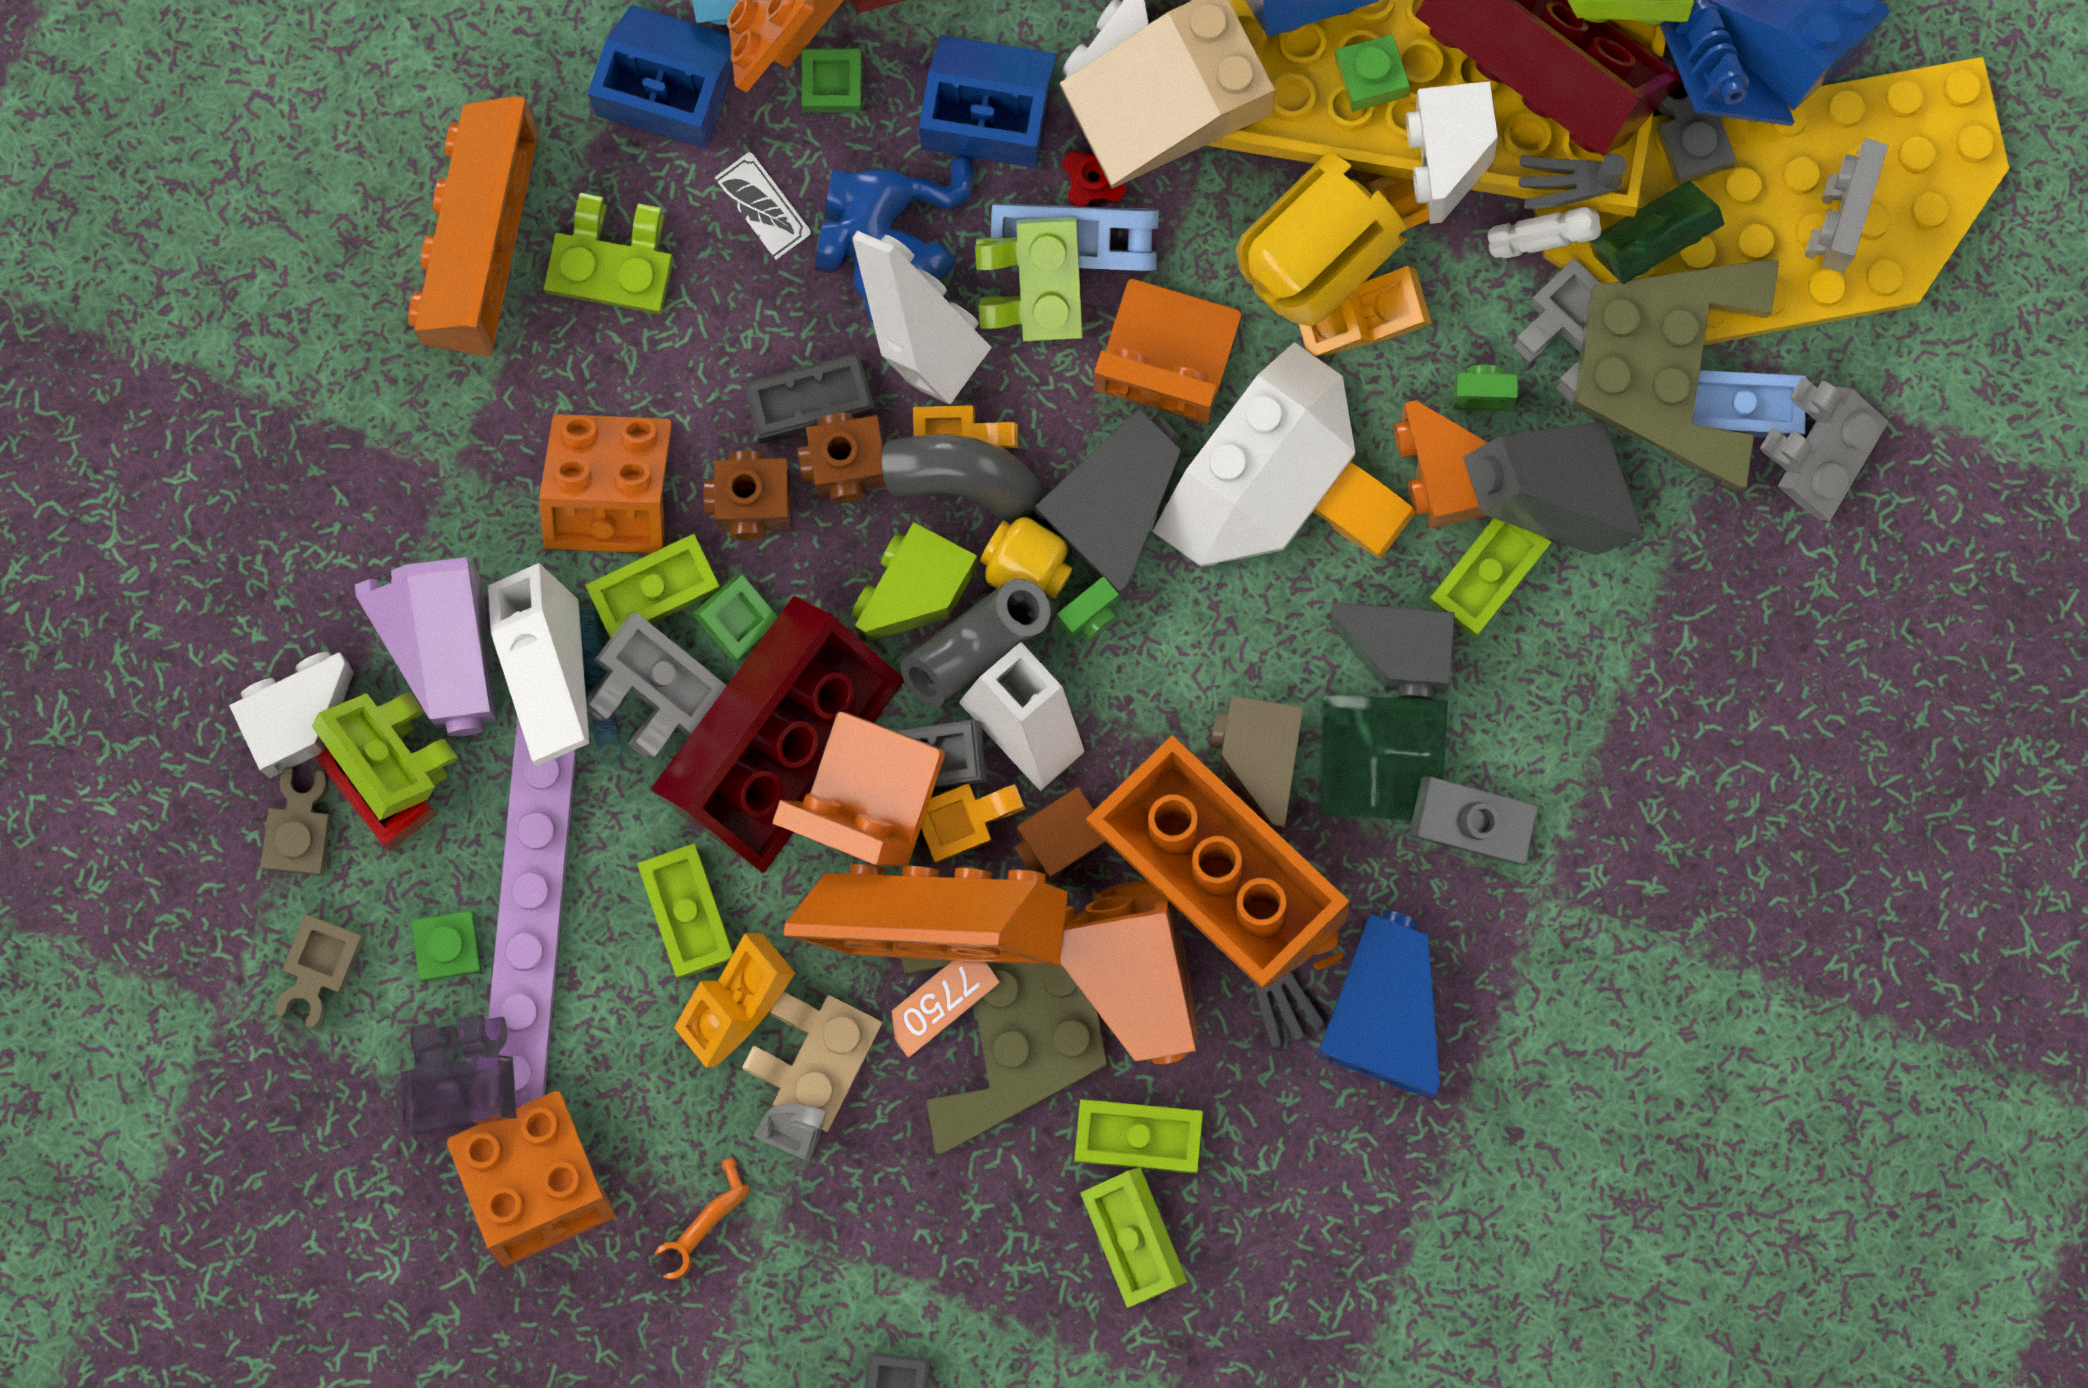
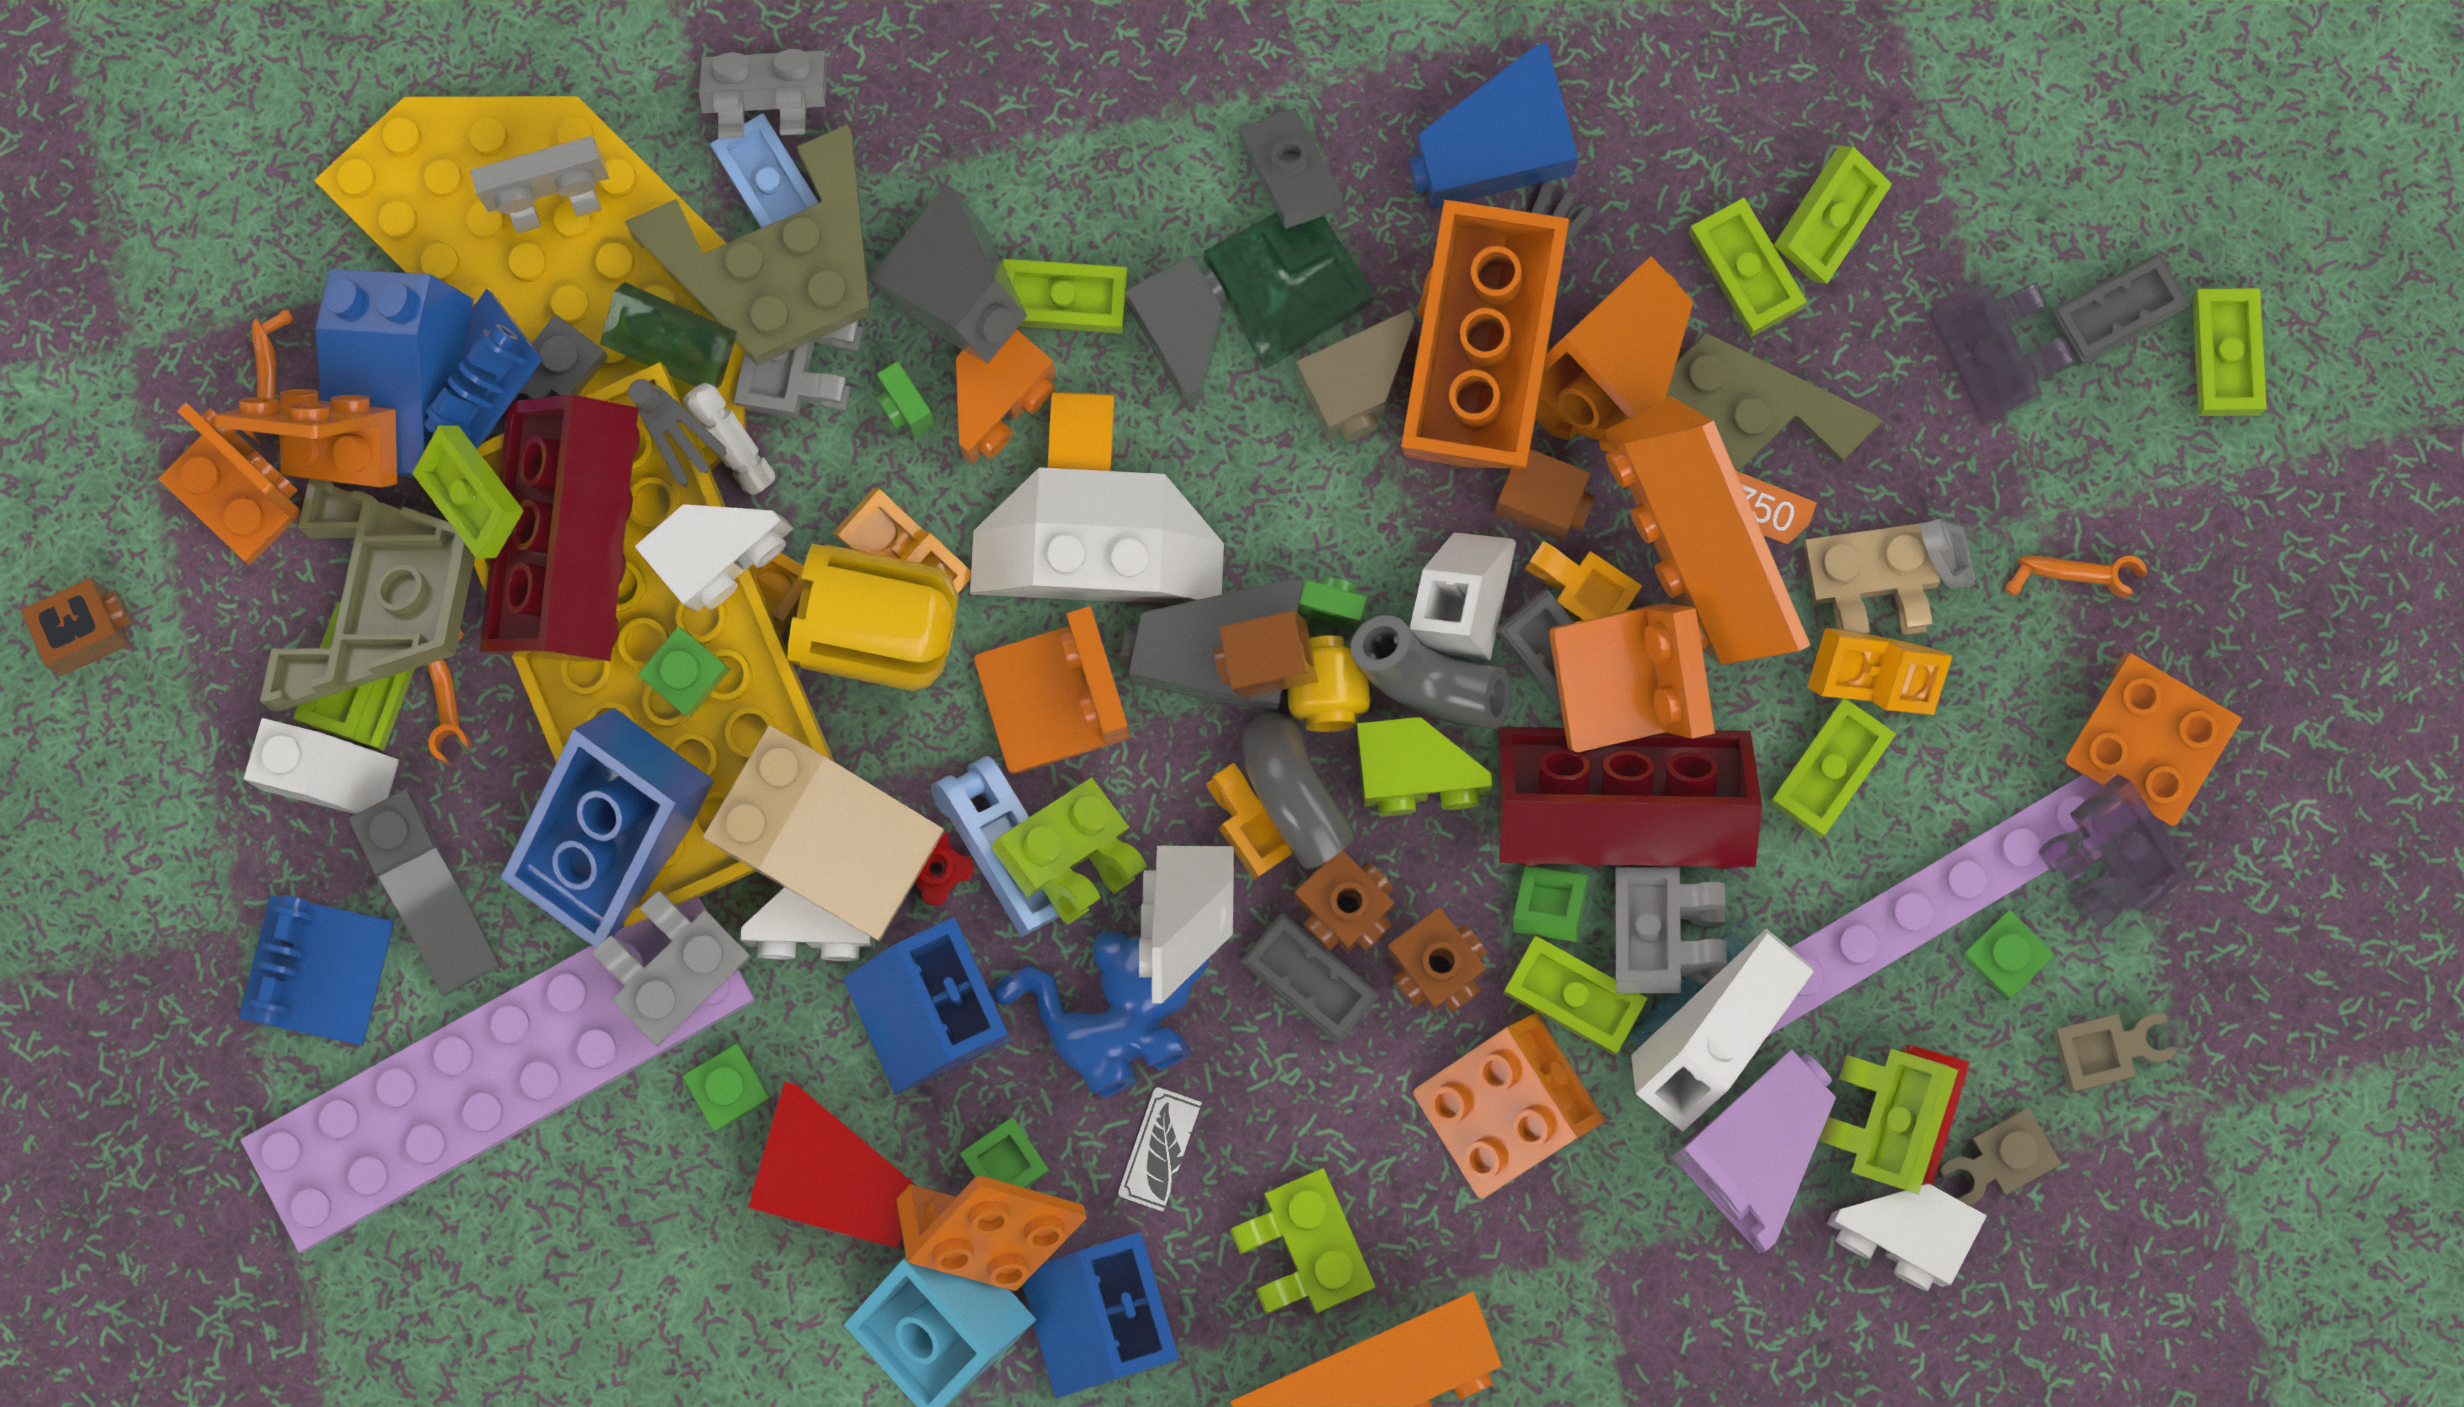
camera: 125 degrees left, 0 degrees up
(931, 1281) = (1987, 353): none -> clear purple plate
(1073, 511) = (1265, 654): none -> dark orange brick

